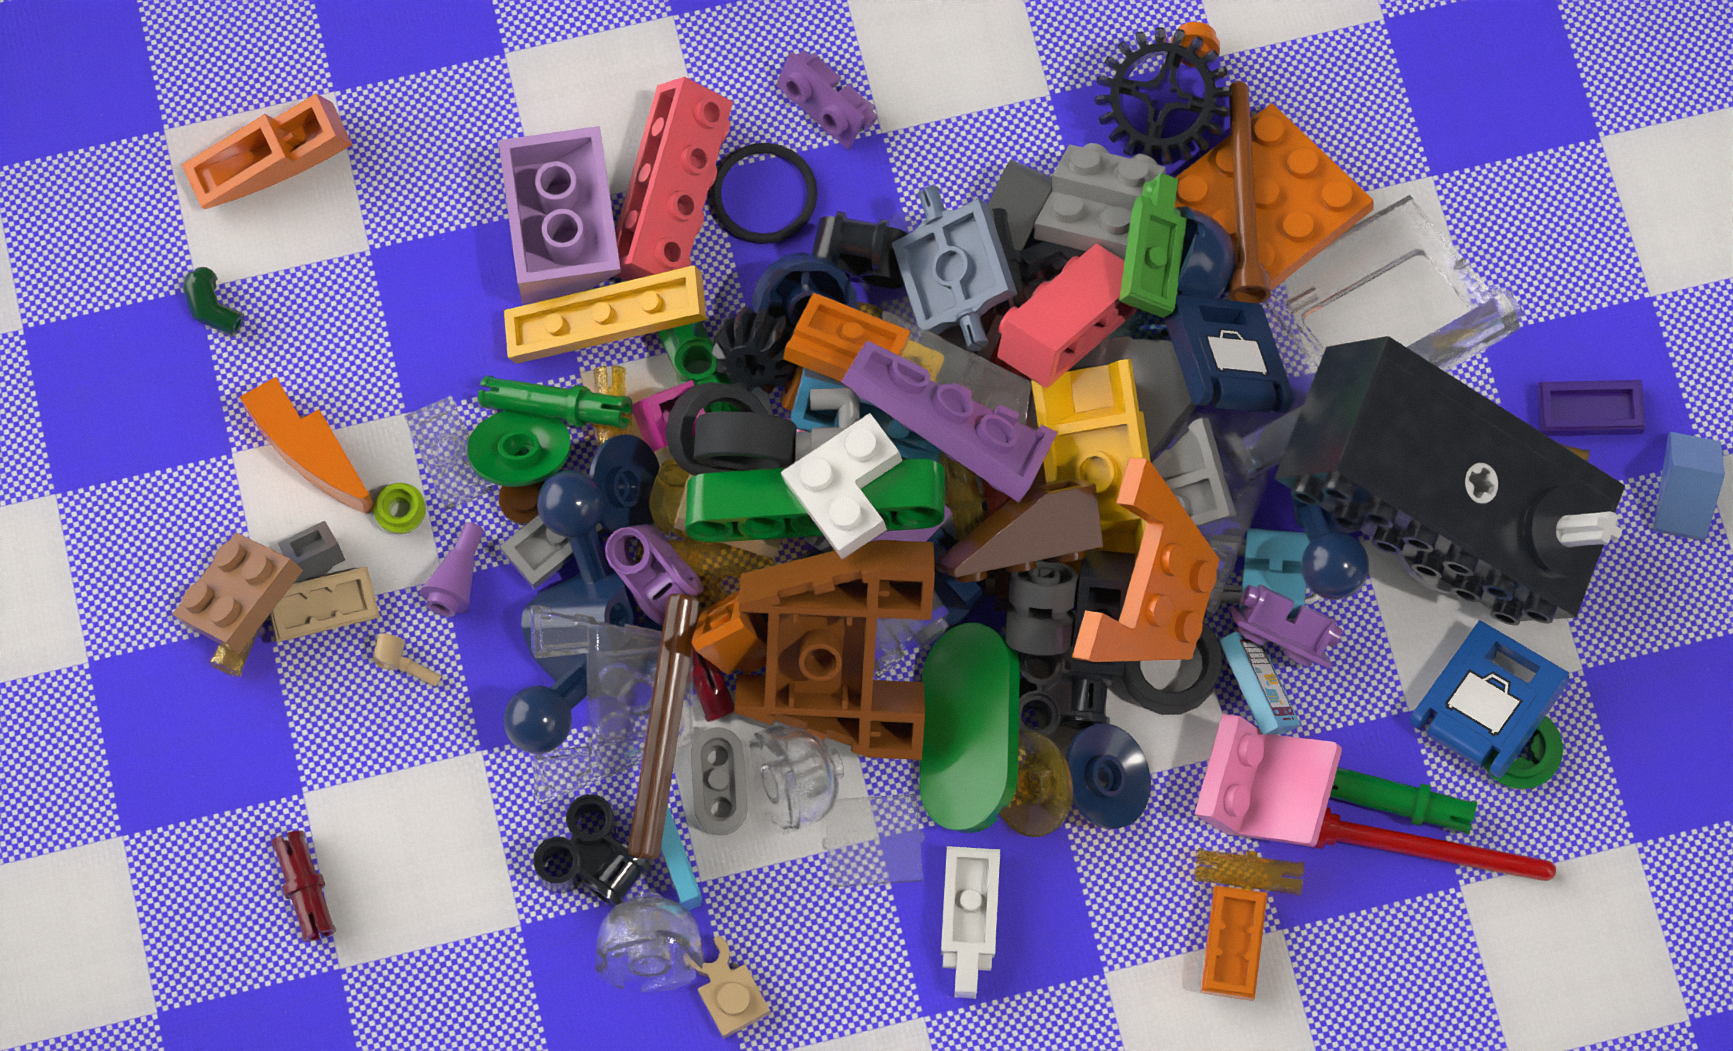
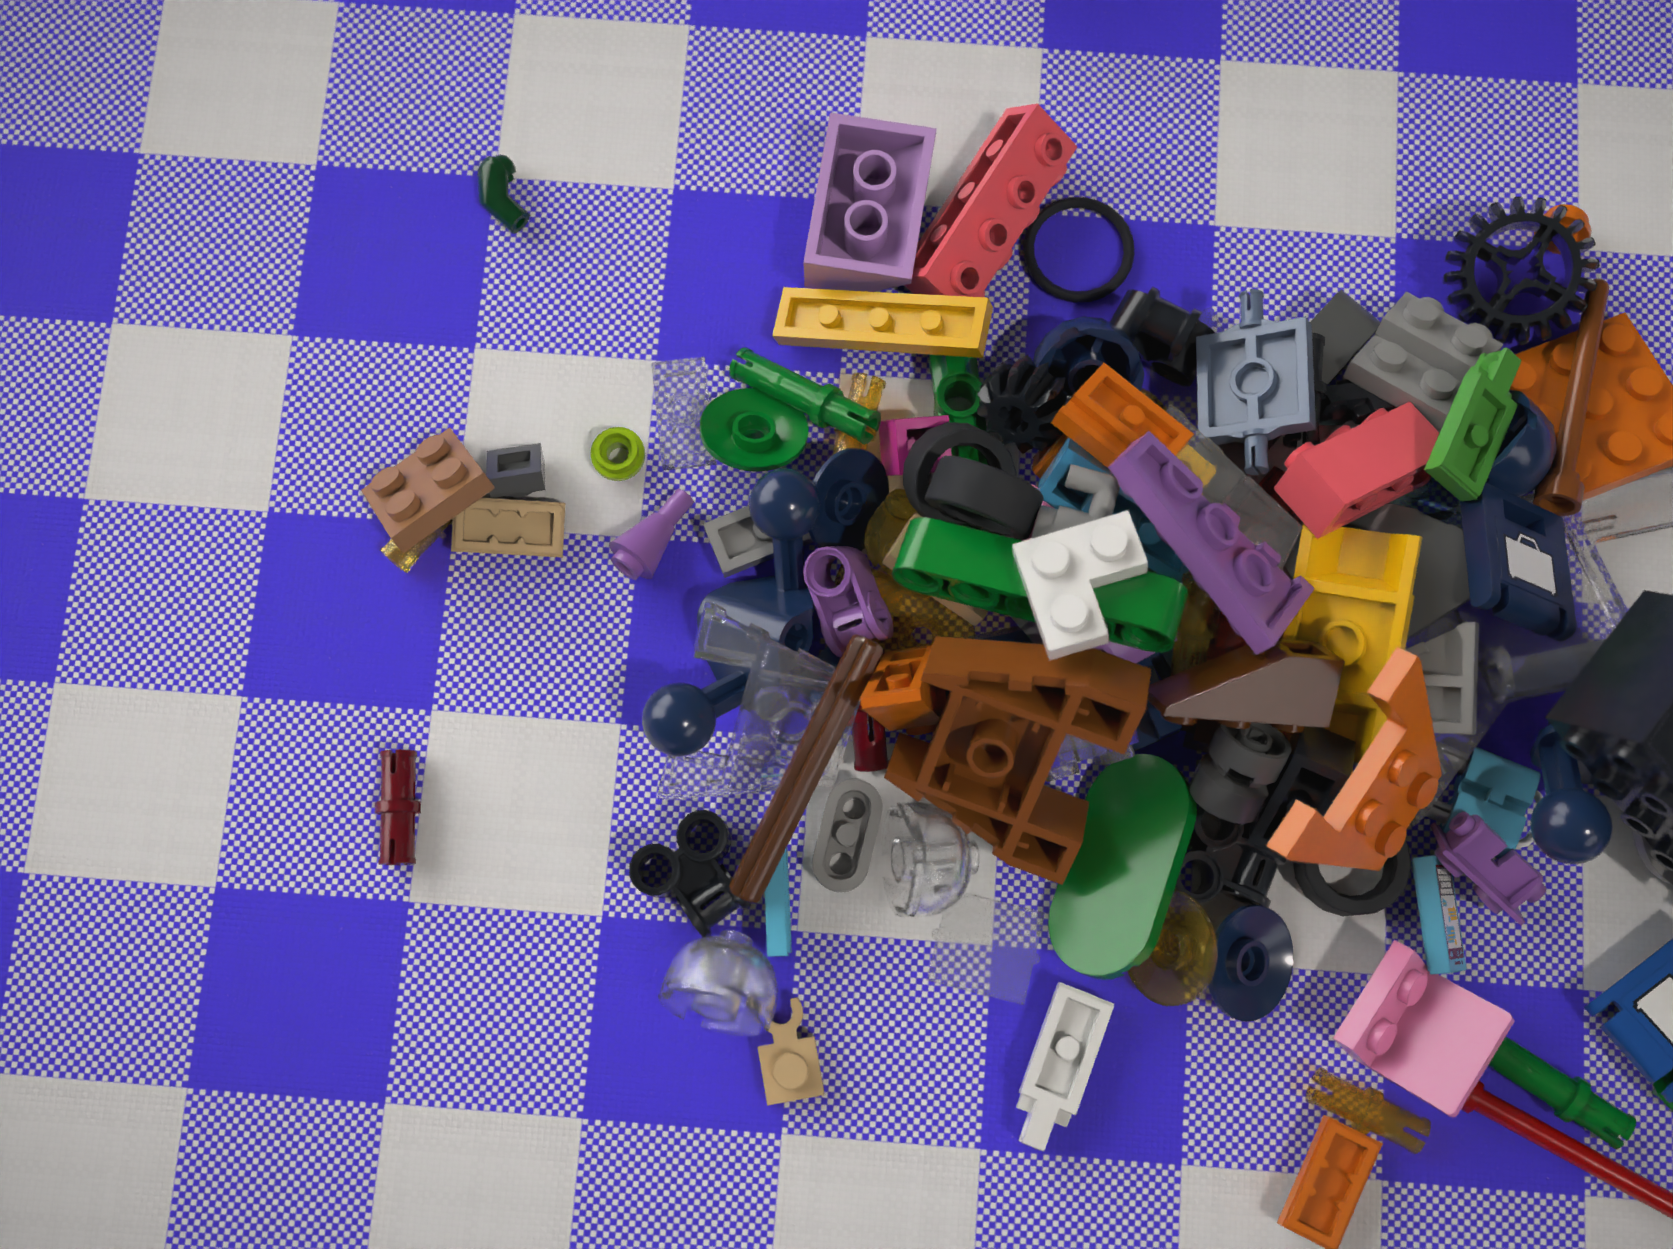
camera: 20 degrees right, 5 degrees up
(267, 152) = (604, 61): orange slope -> none
(306, 444) = (546, 359): orange slope -> none
(389, 656) = (559, 598): tan hand -> none
(520, 502) = (736, 485): reddish brown plate -> none
(810, 85) = (1161, 161): medium lavender hinge -> none

